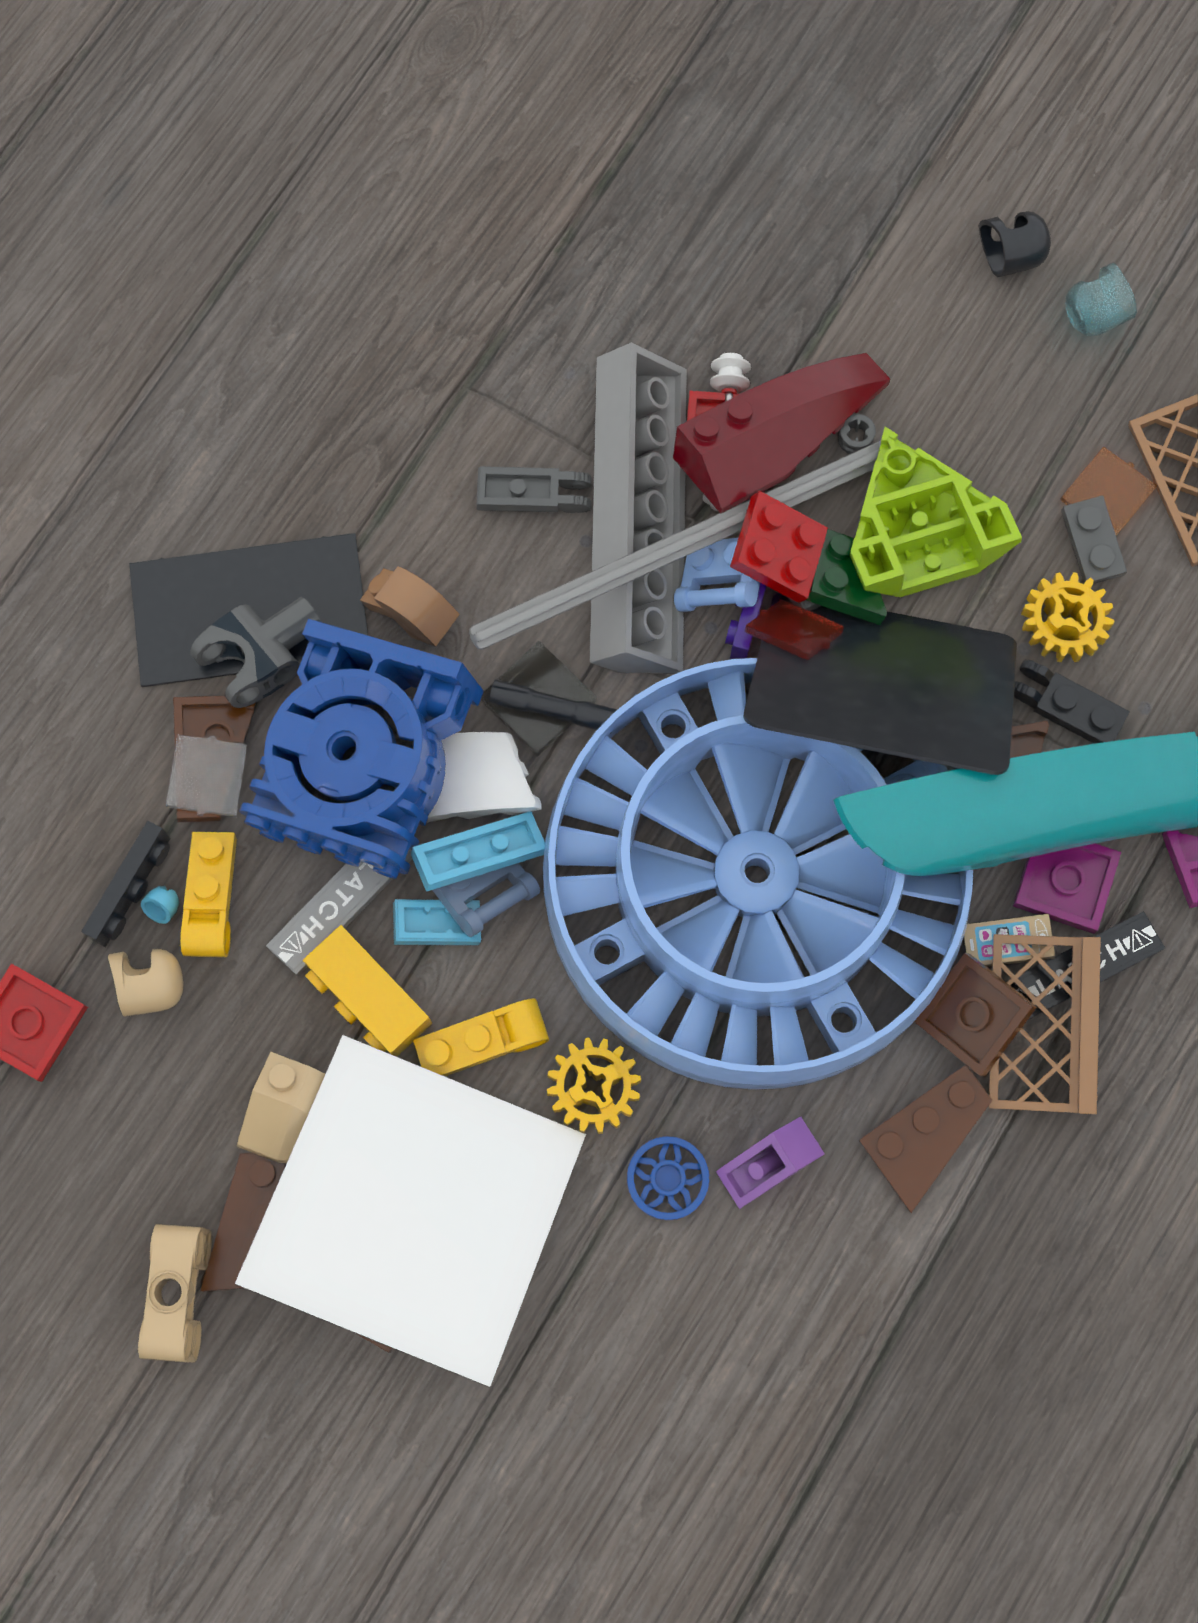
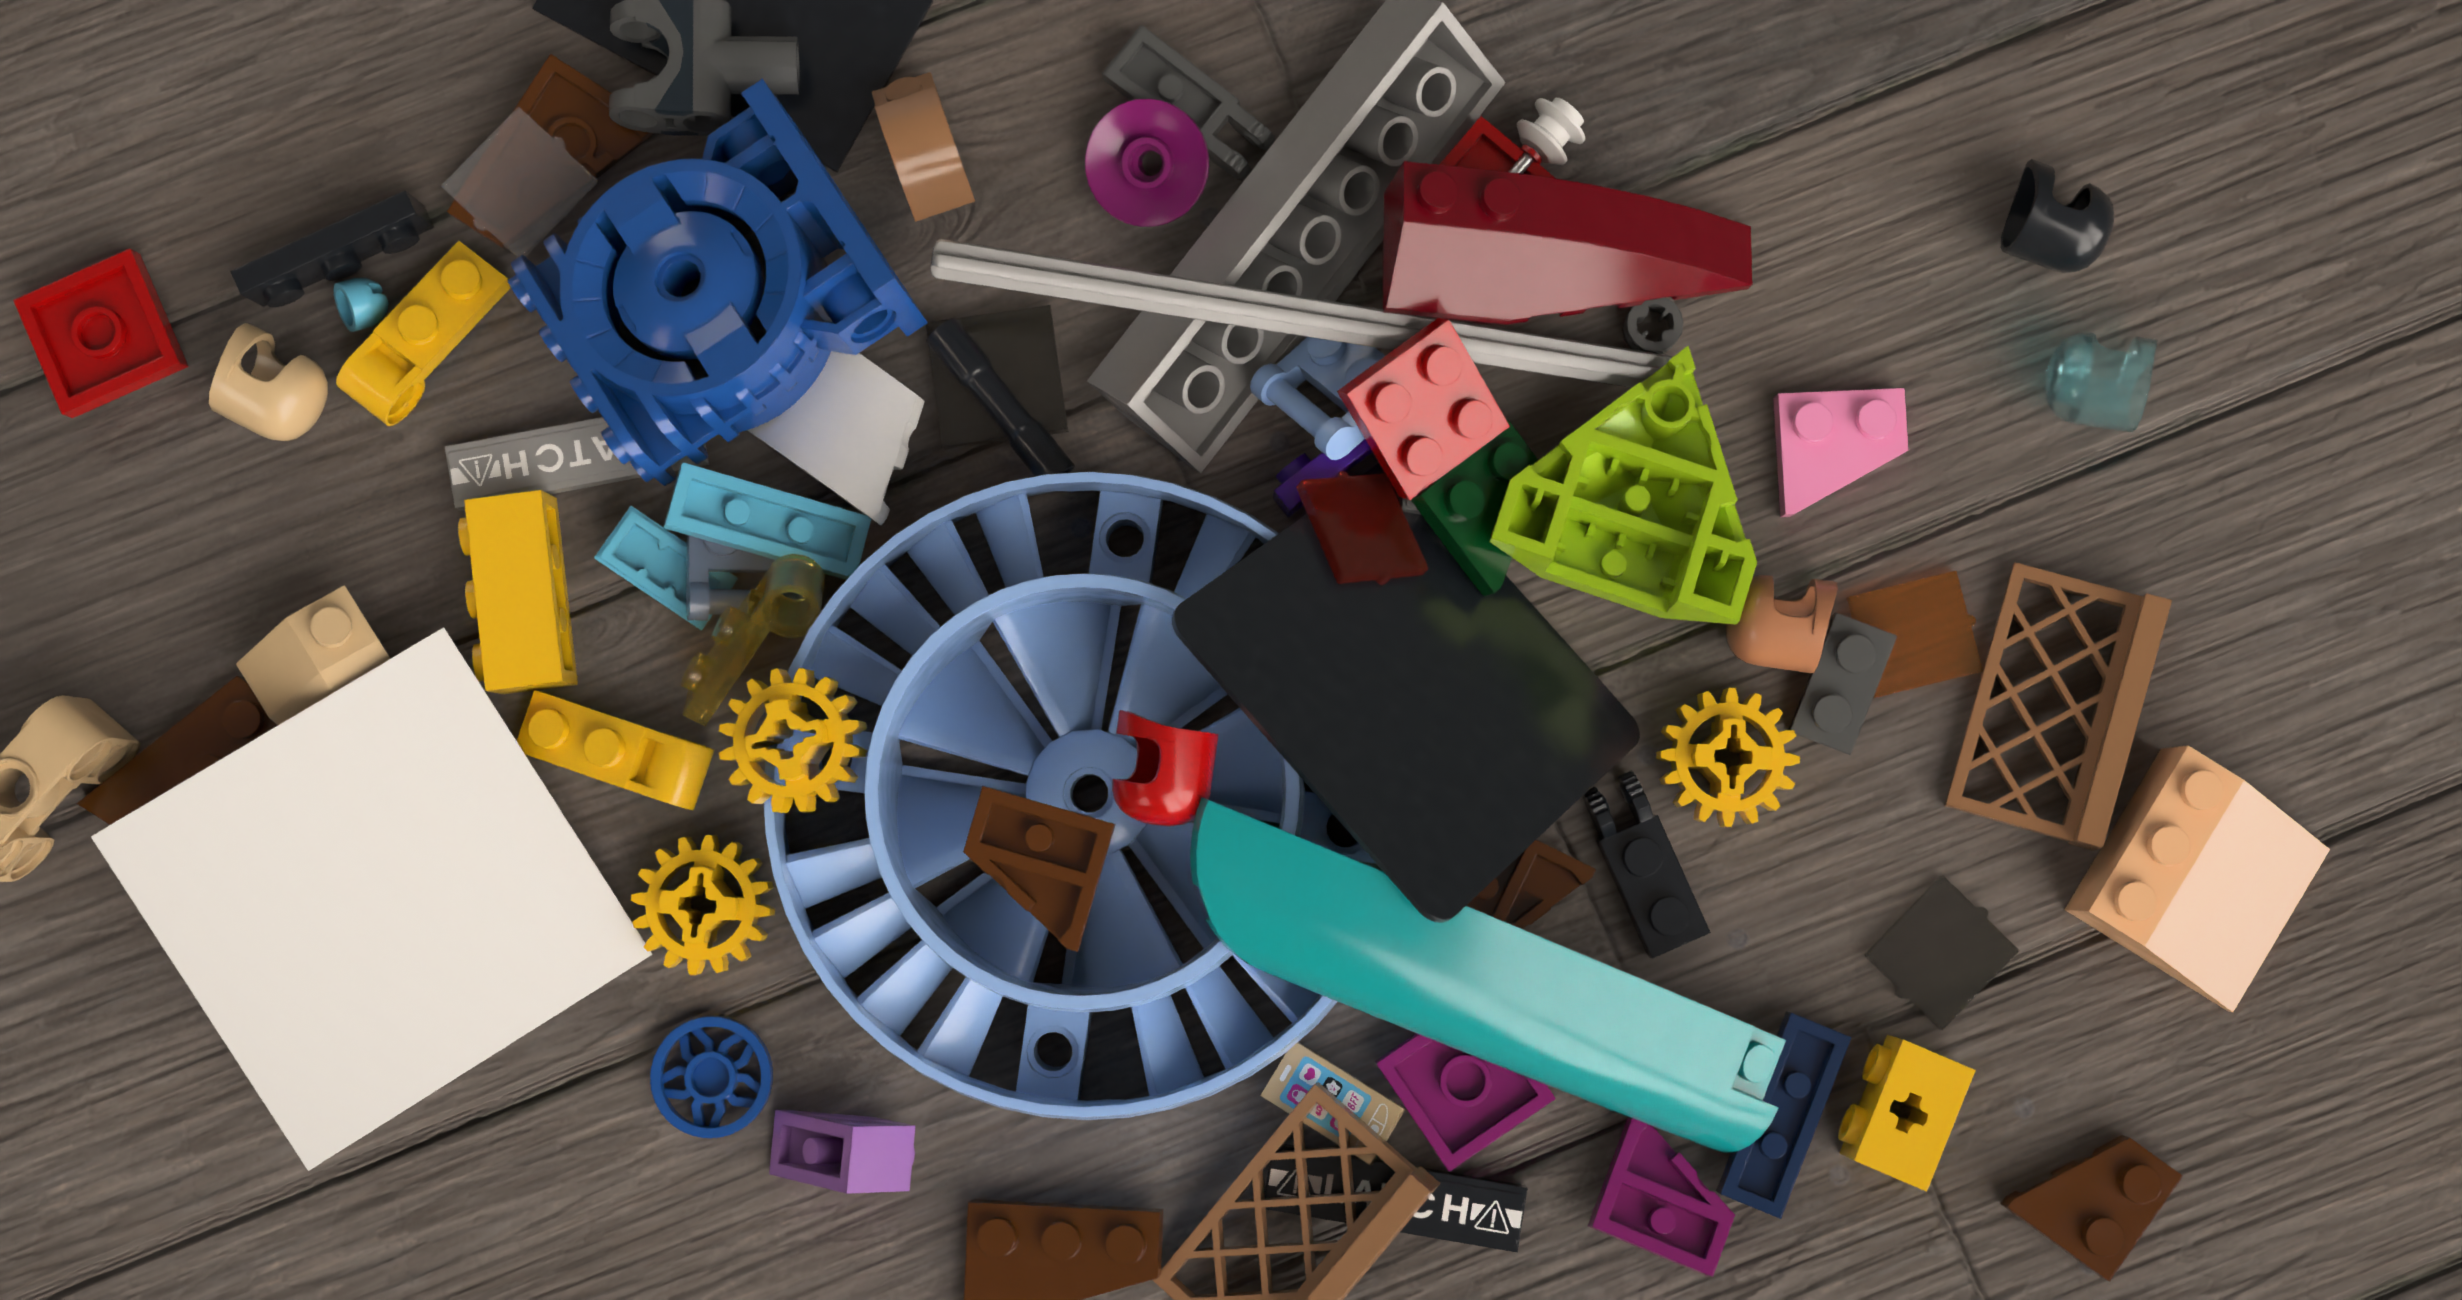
camera: 35 degrees right, 10 degrees up
(509, 916) = (744, 629): none -> clear yellow plate
(532, 510) = (1117, 155): none -> magenta dish
(602, 925) = (784, 715): none -> yellow gear
(771, 898) = (1041, 858): none -> reddish brown wing
(801, 803) = (1169, 773): none -> red helmet
(975, 1014) = (1217, 1163): reddish brown plate -> none
(991, 426) = (1834, 440): none -> bright pink wing
(1046, 534) = (1782, 631): none -> nougat helmet

